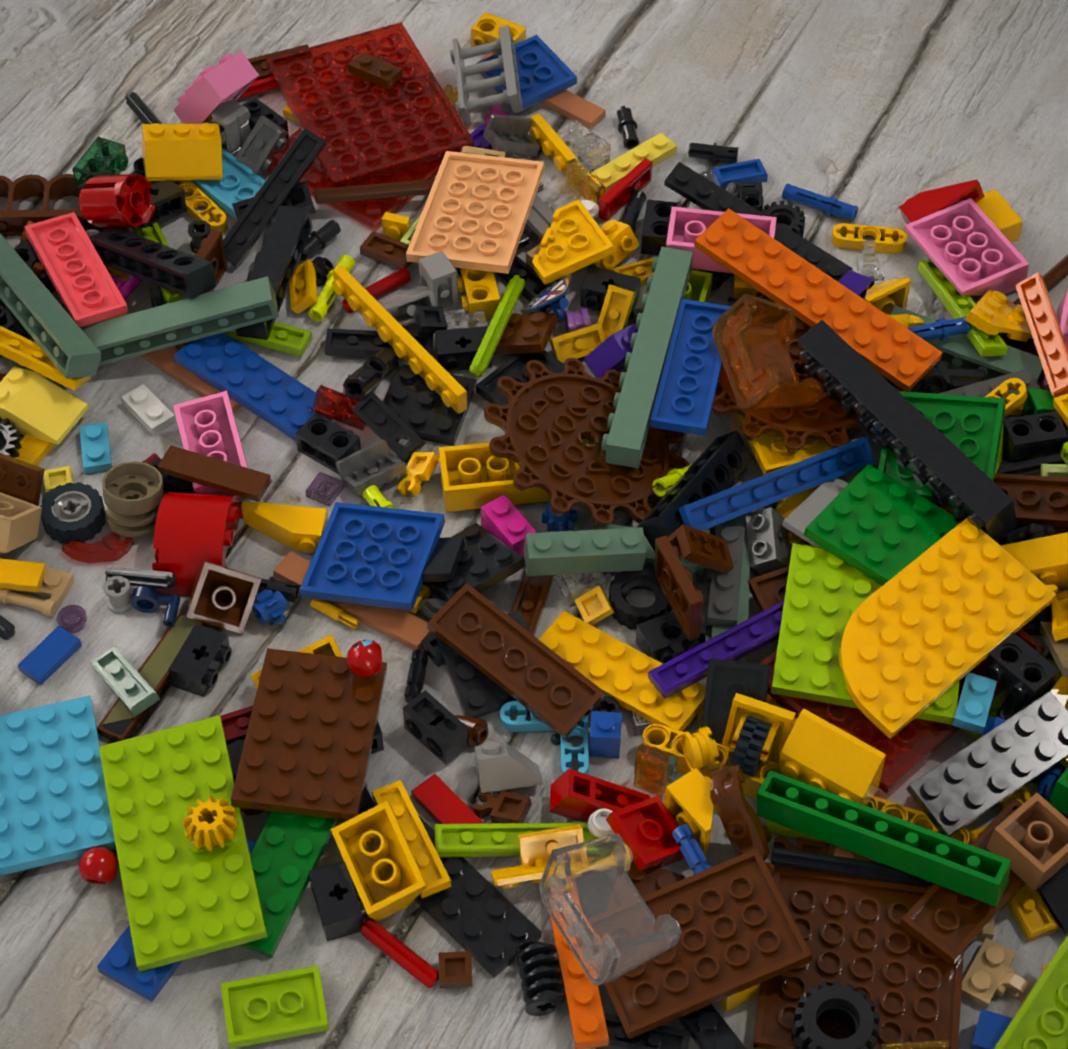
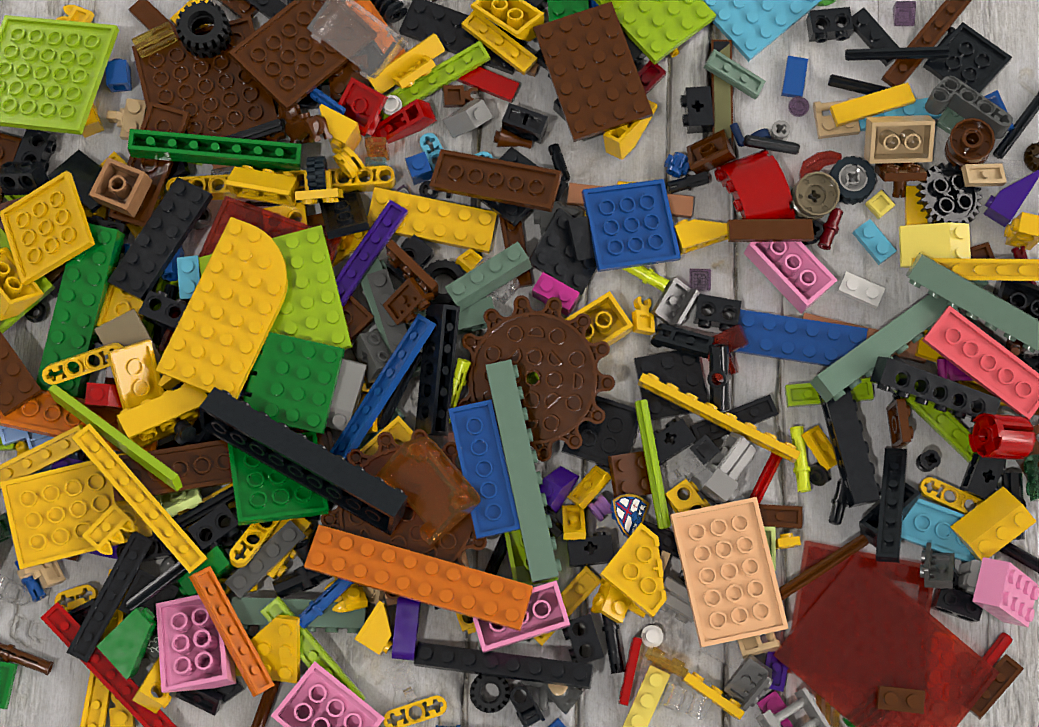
camera: 155 degrees right, 25 degrees up
(365, 658) = (583, 119): red piece -> none

